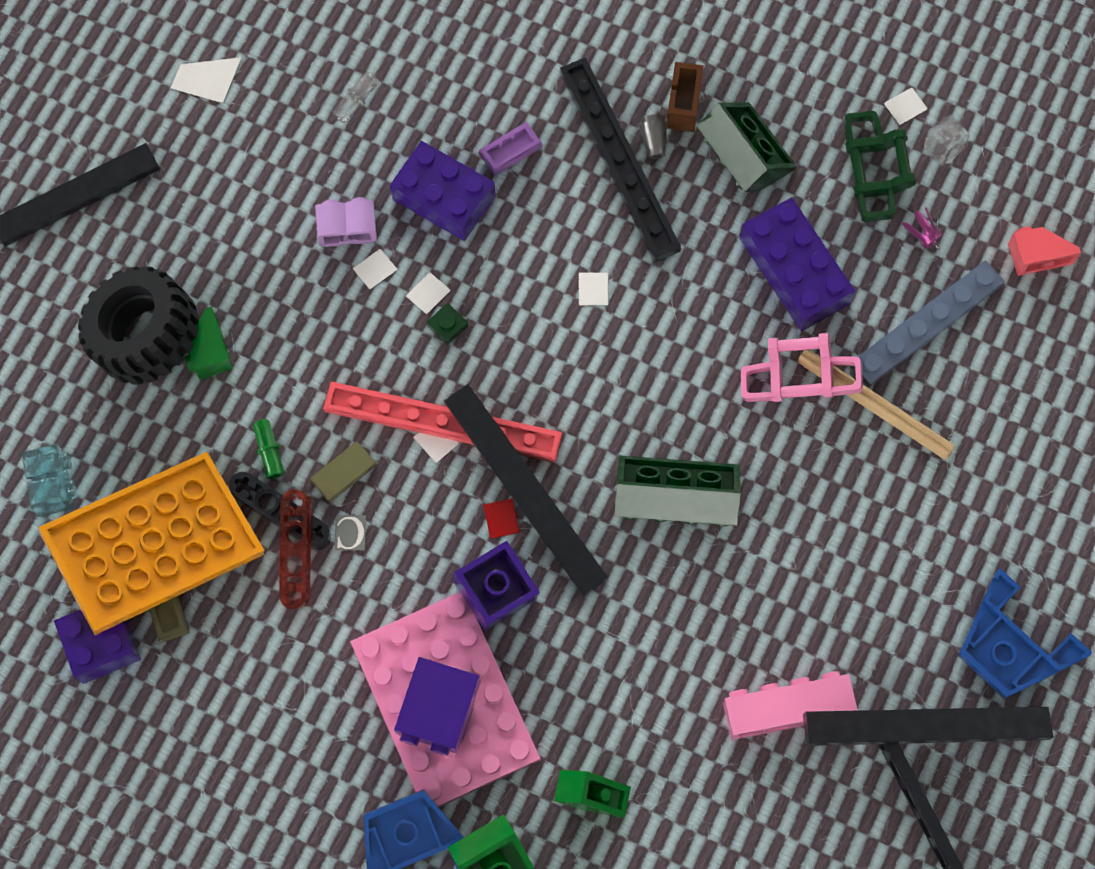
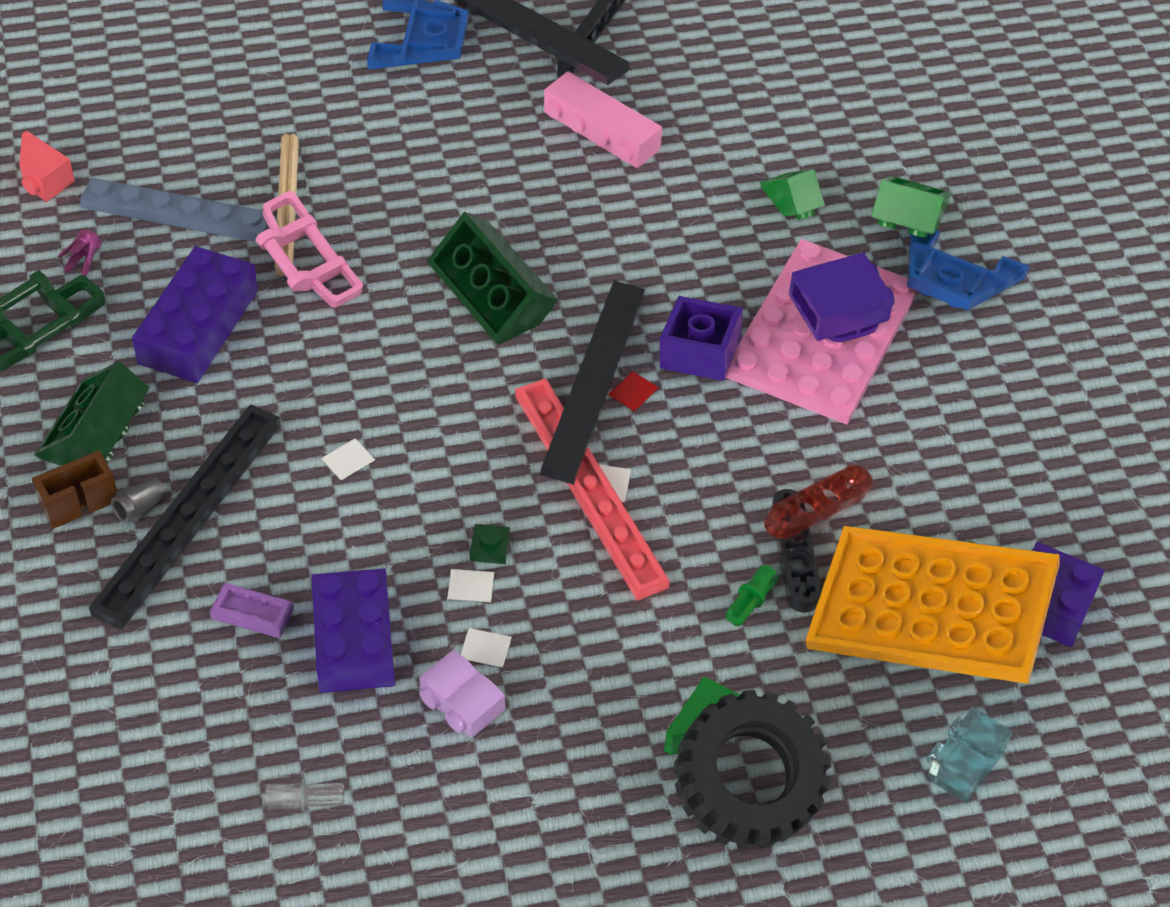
camera: 135 degrees left, 20 degrees down
(343, 471) = (711, 527): olive tile -> none
(350, 532) = (757, 489): light grey sticker -> none

